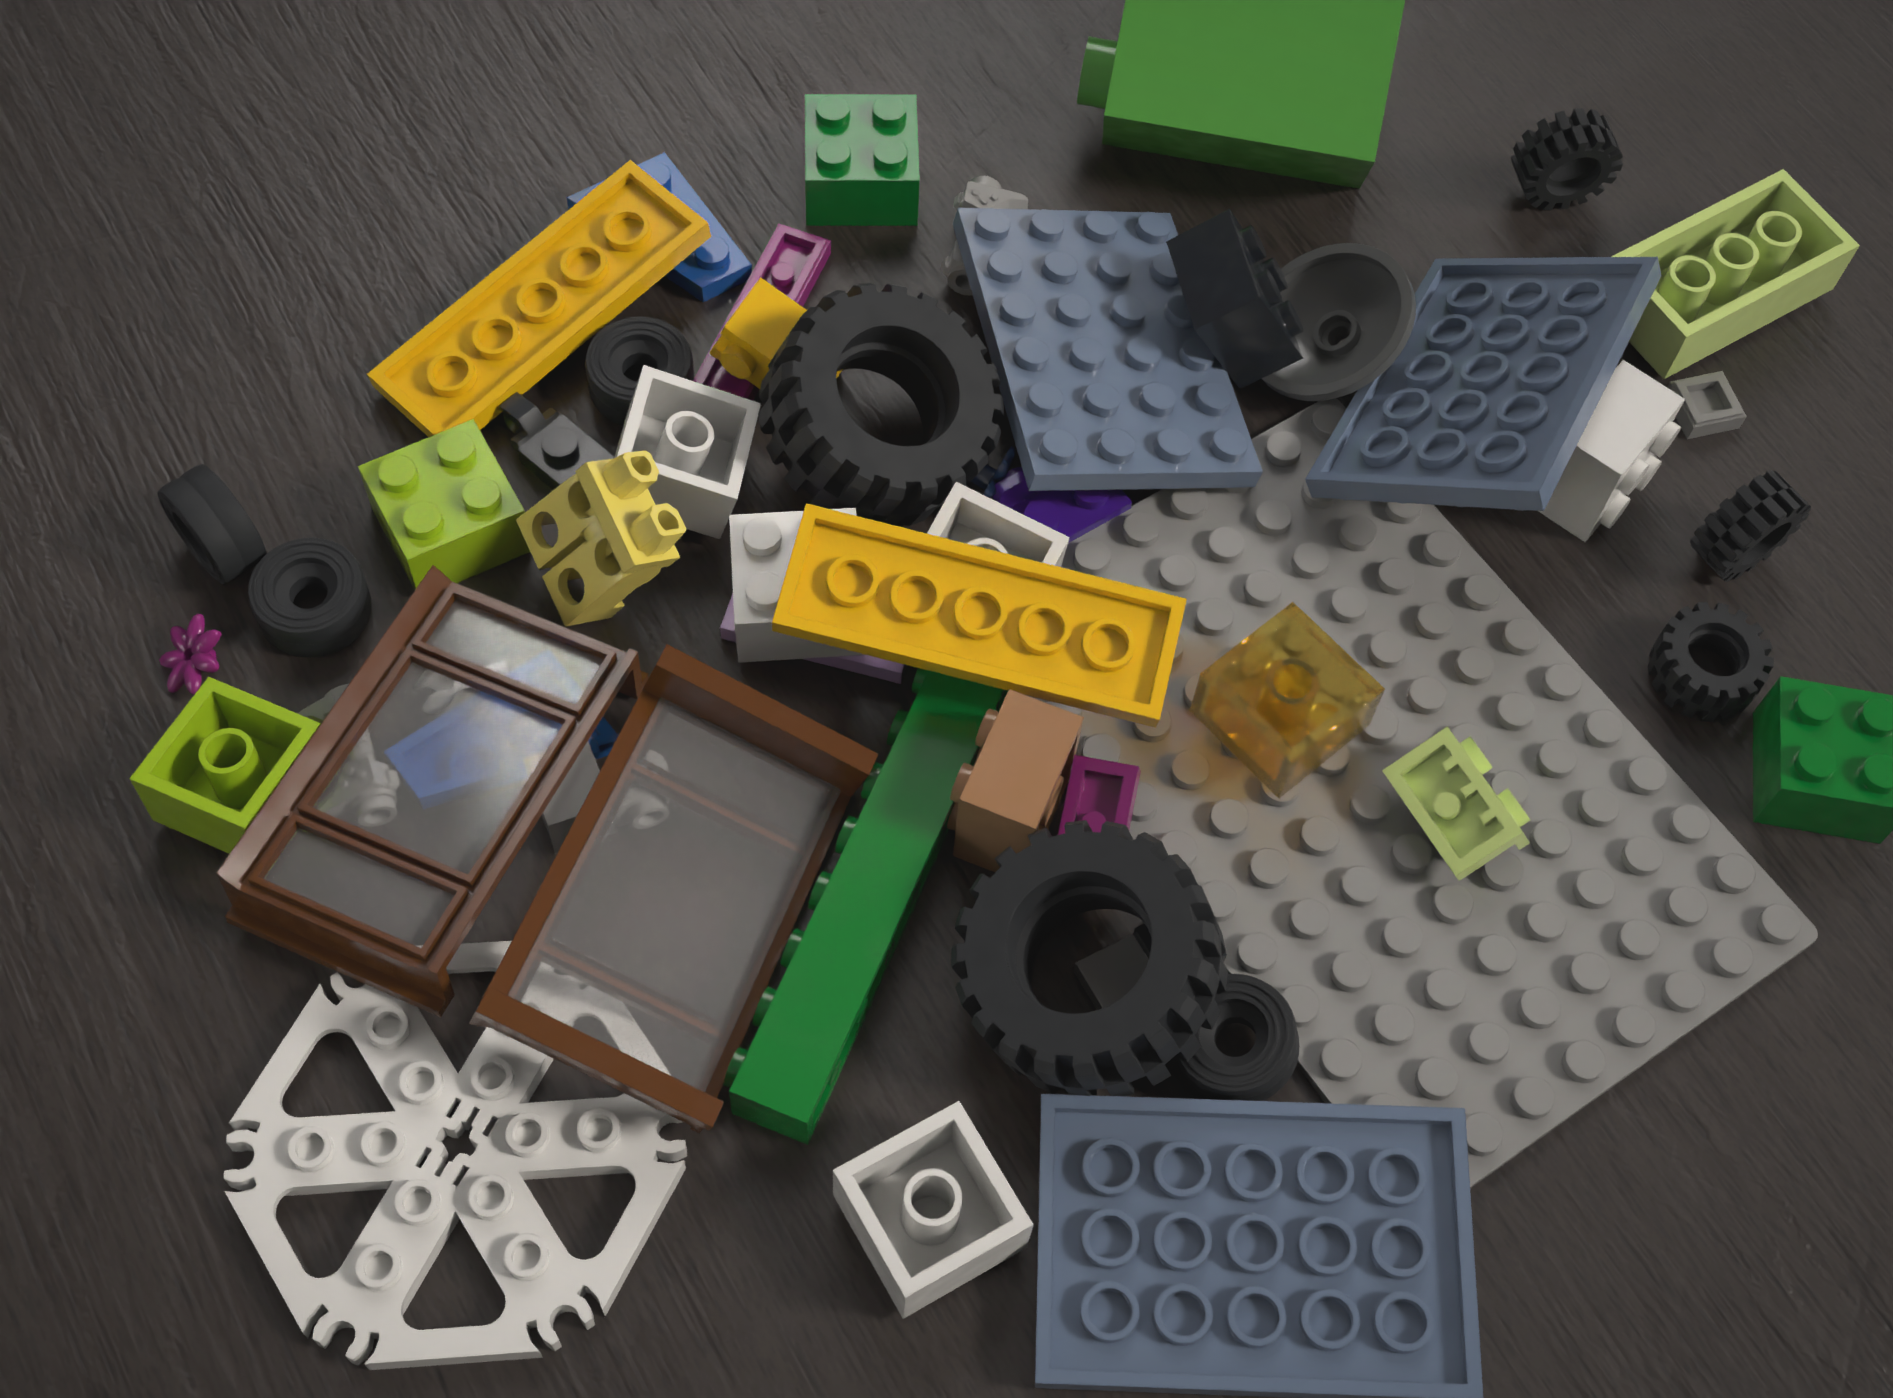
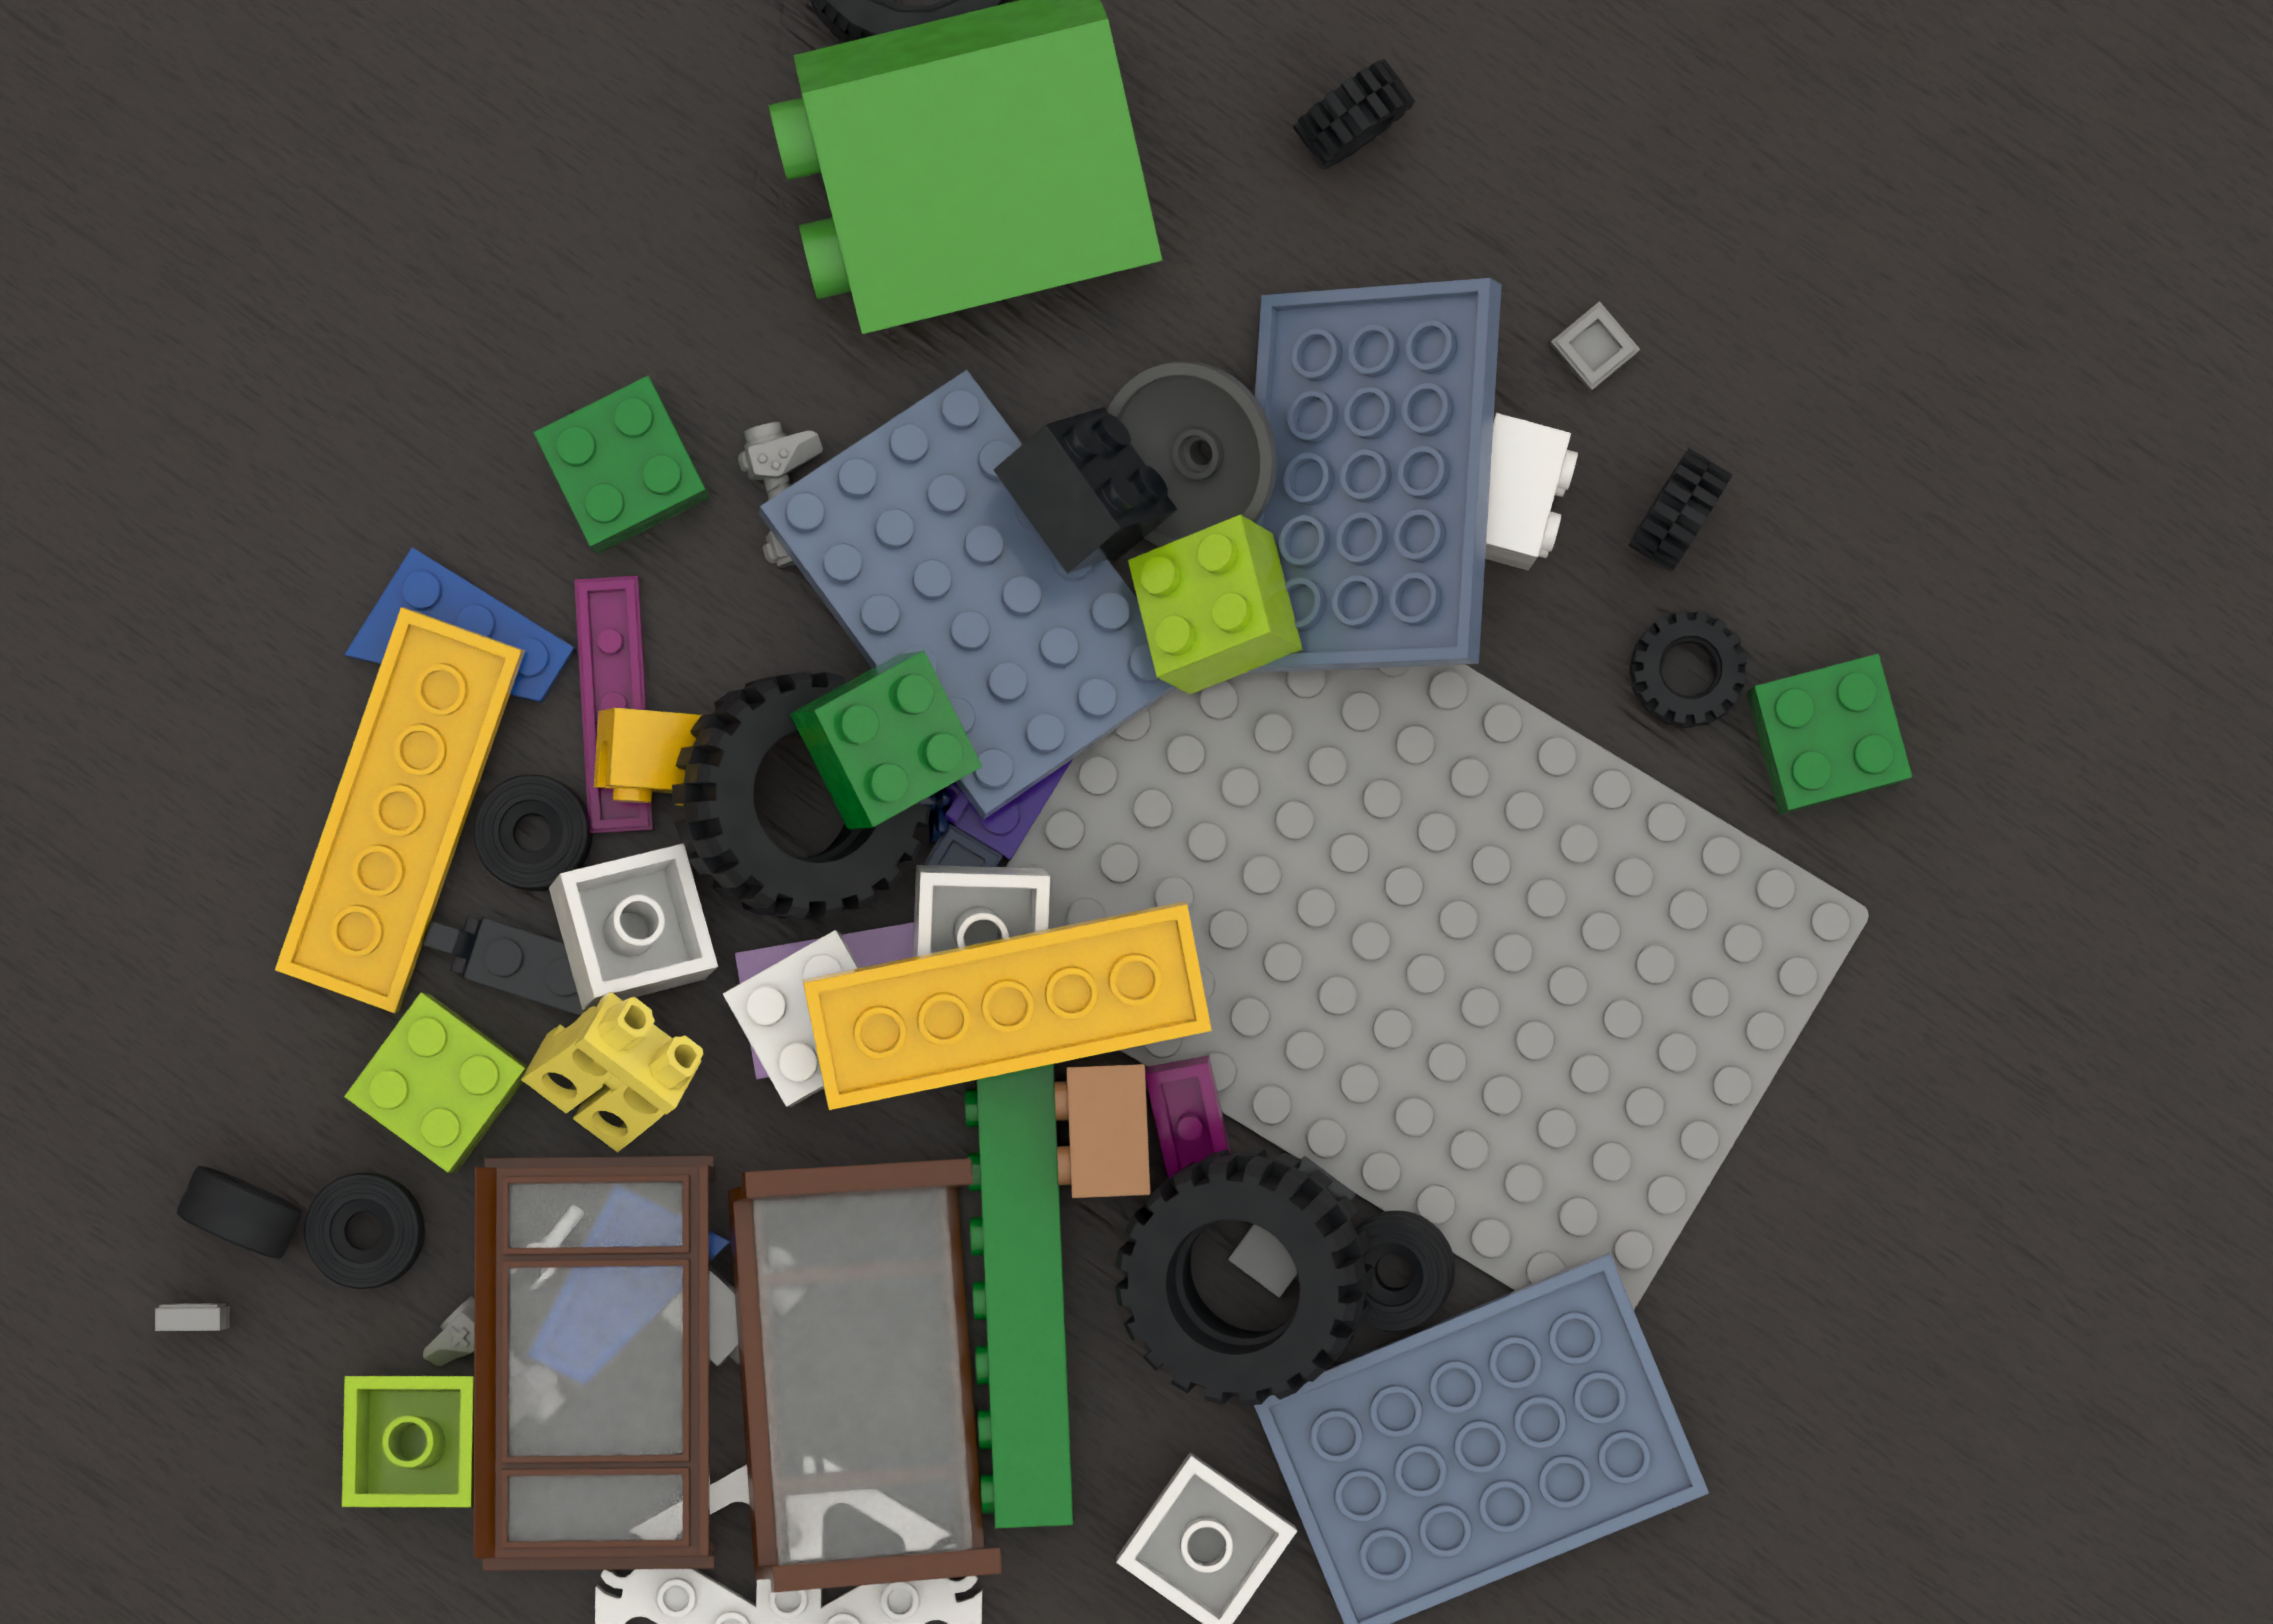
camera: 25 degrees left, 25 degrees up
(117, 596) = (192, 1317): none -> light grey tile
(193, 655) = (293, 1339): magenta plant -> none
(979, 359) = (886, 740): none -> green brick
(1286, 699) = (1313, 931): clear yellow brick -> none
(1309, 416) = (1214, 604): none -> lime brick
(1456, 804) = (1506, 951): yellowish green bracket -> none
(1736, 270) = (1565, 186): yellowish green brick -> none

